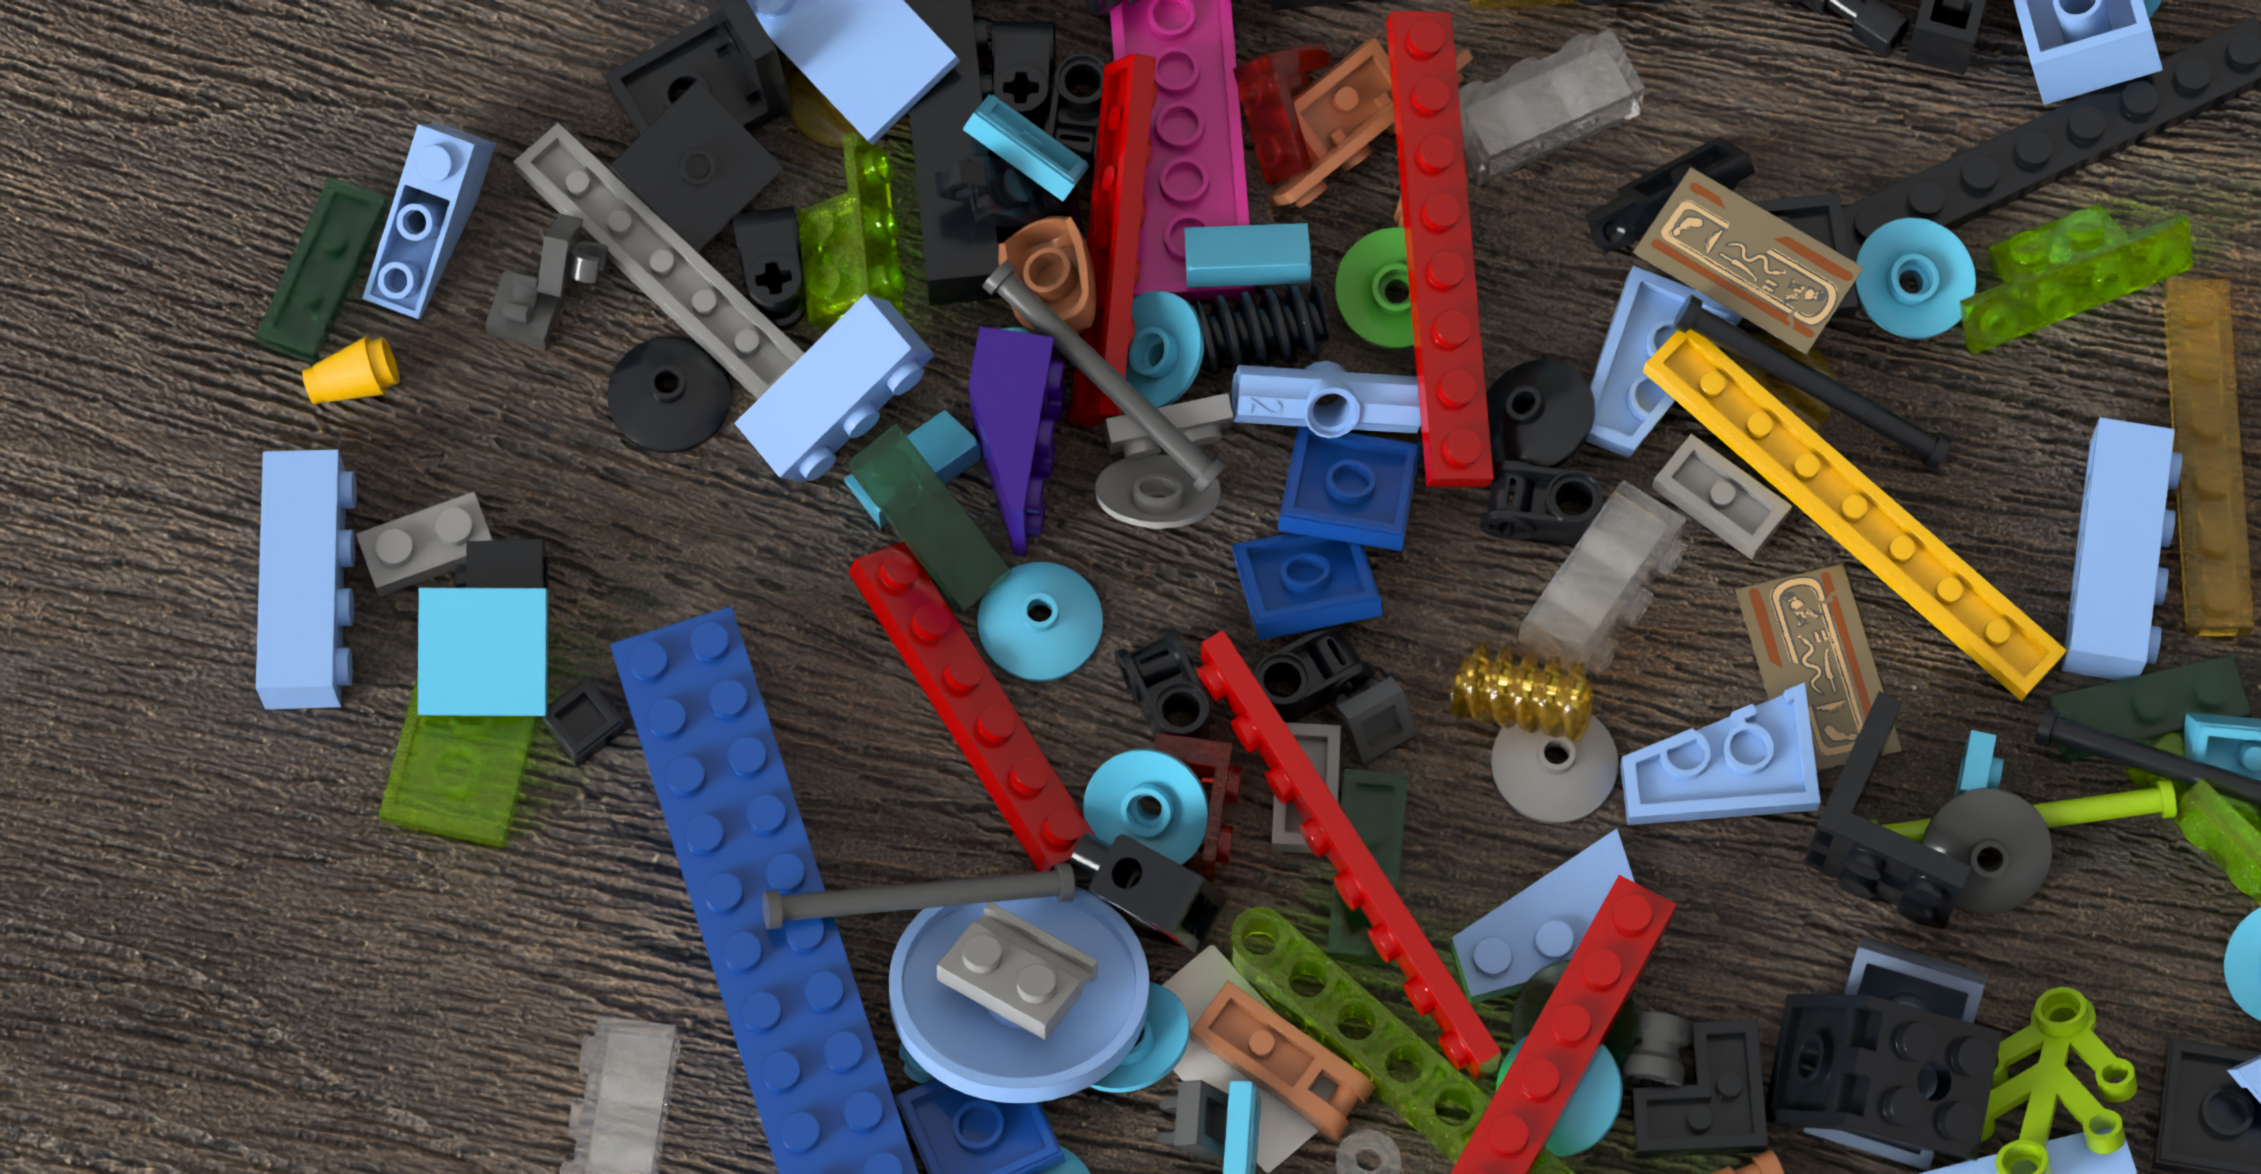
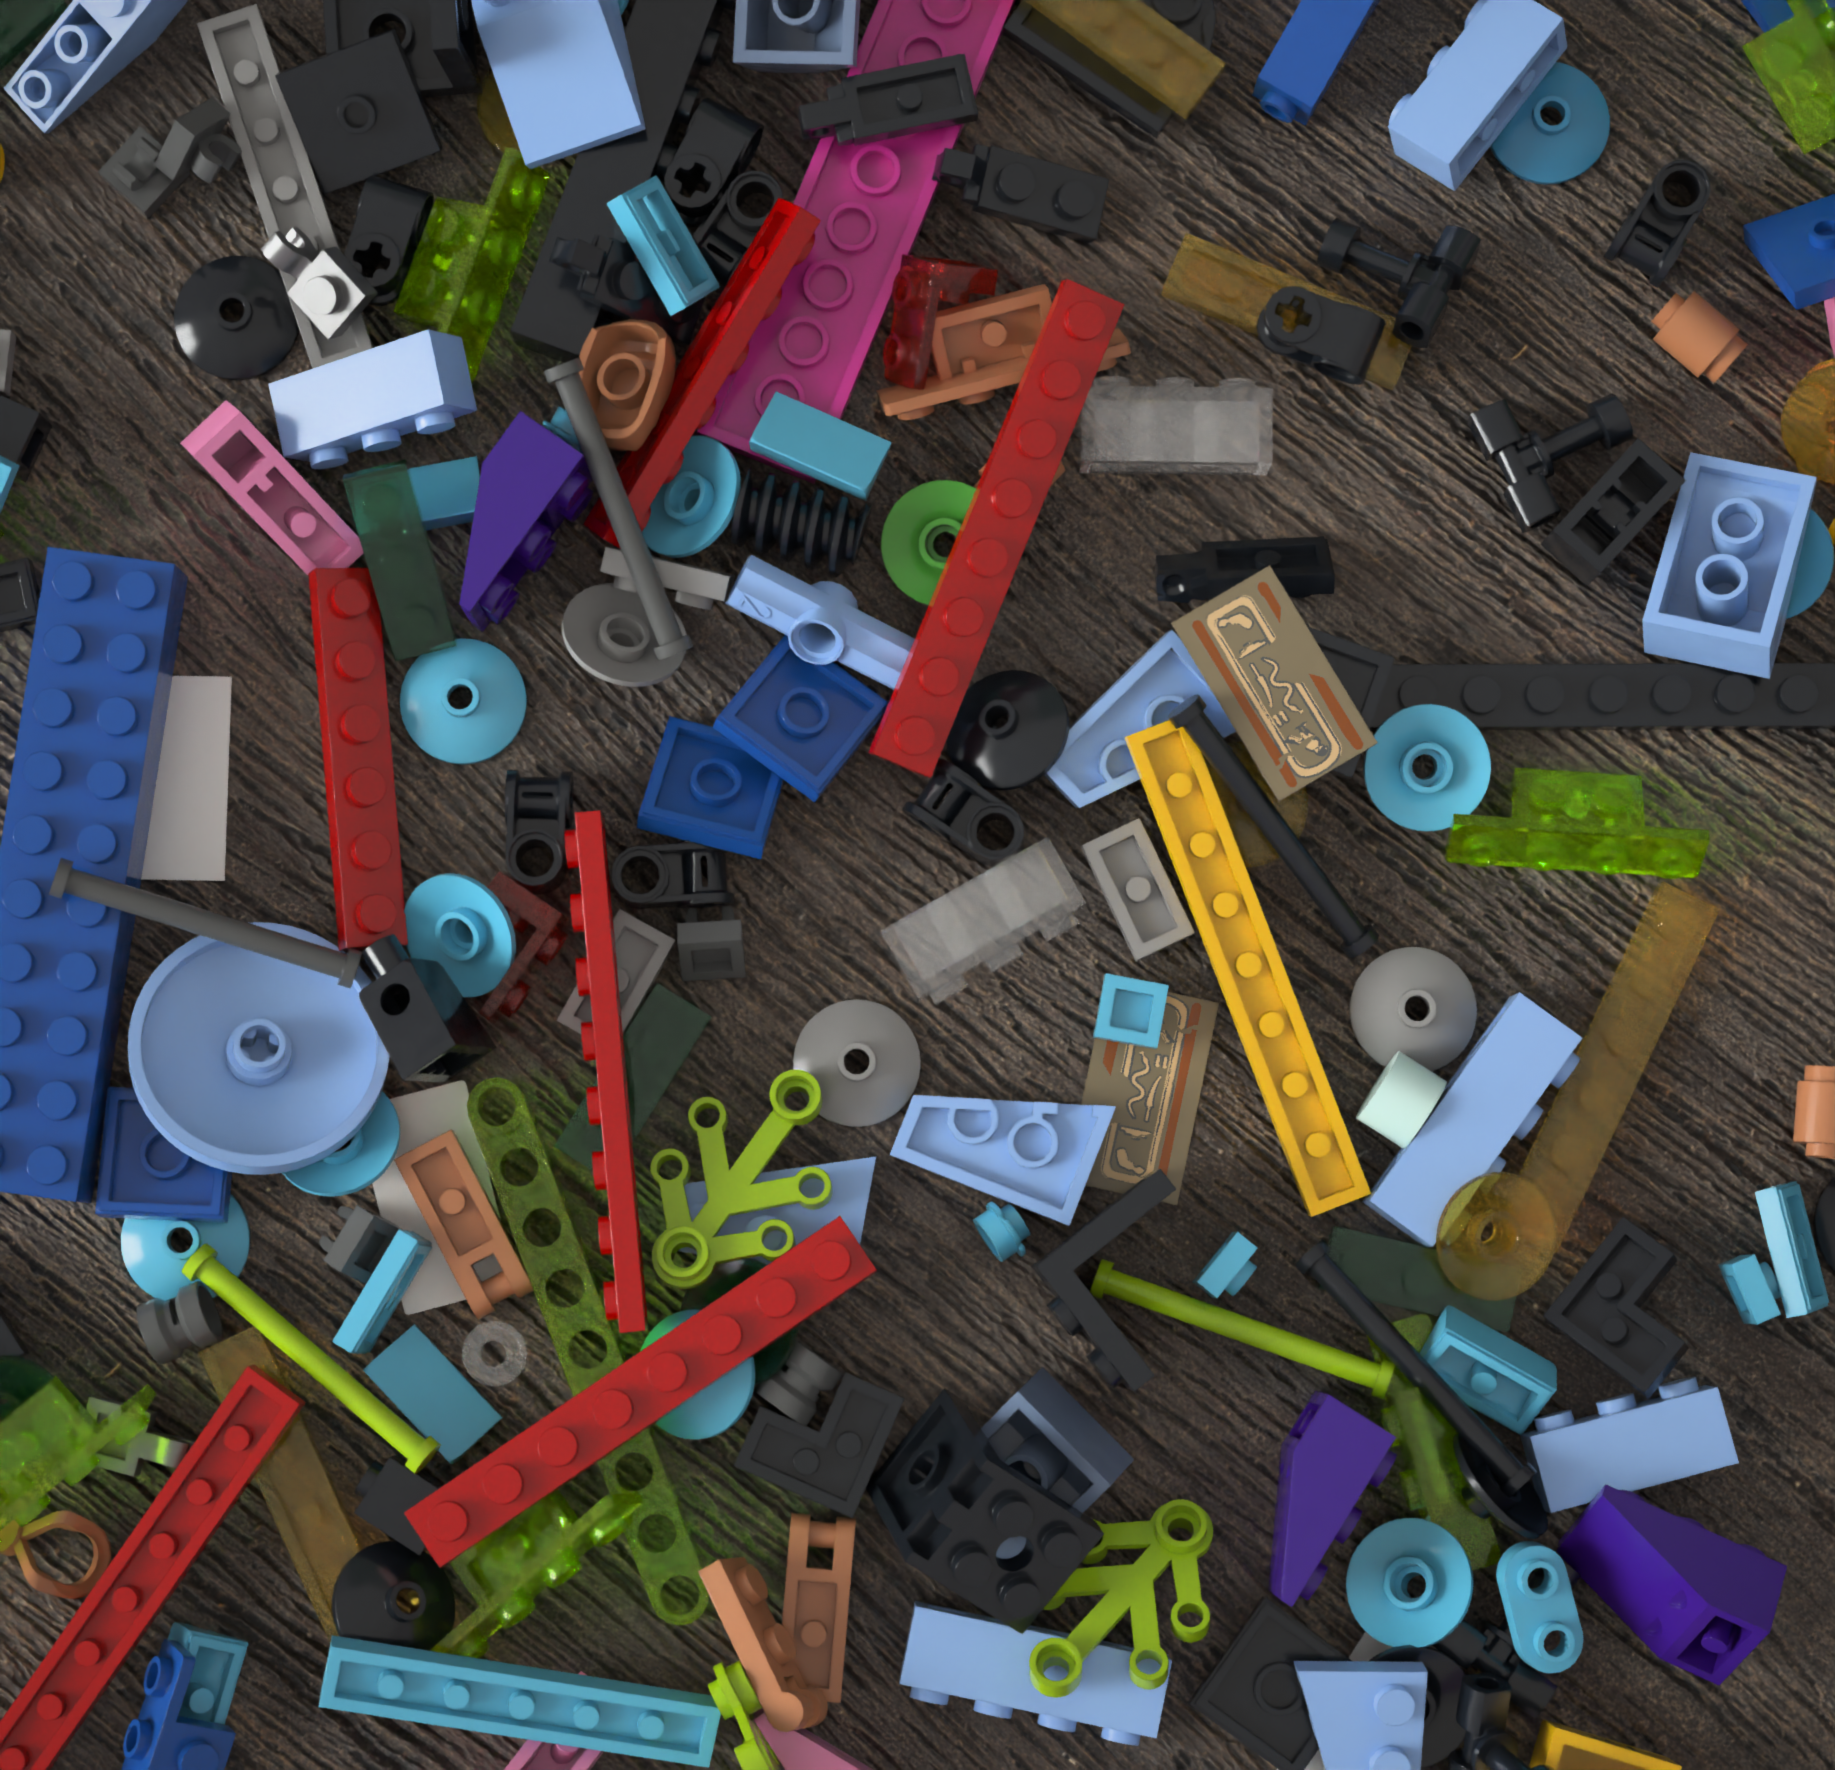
camera: 20 degrees right, 15 degrees up
(745, 317) = (326, 282): none -> plate
(777, 515) = (272, 491): none -> bright pink slope
(832, 802) = (192, 784): none -> white sticker
(1017, 970) = (259, 1036): light grey plate -> none
(1509, 909) = (732, 1189): none -> lime plant
(1523, 693) = (851, 994): clear yellow piece -> none
(1762, 839) = (1002, 1230): none -> medium azure plate
(1772, 599) = (1131, 1011): none -> medium azure plate
(2000, 821) = (1208, 1326): dark grey dish -> none
(2009, 515) = (1380, 1000): none -> light grey dish
(2048, 559) = (1401, 1099): none -> light aqua piece
(2163, 911) = (1320, 1478): none -> dark purple slope
(2212, 615) = (1520, 1241): none -> clear yellow dish

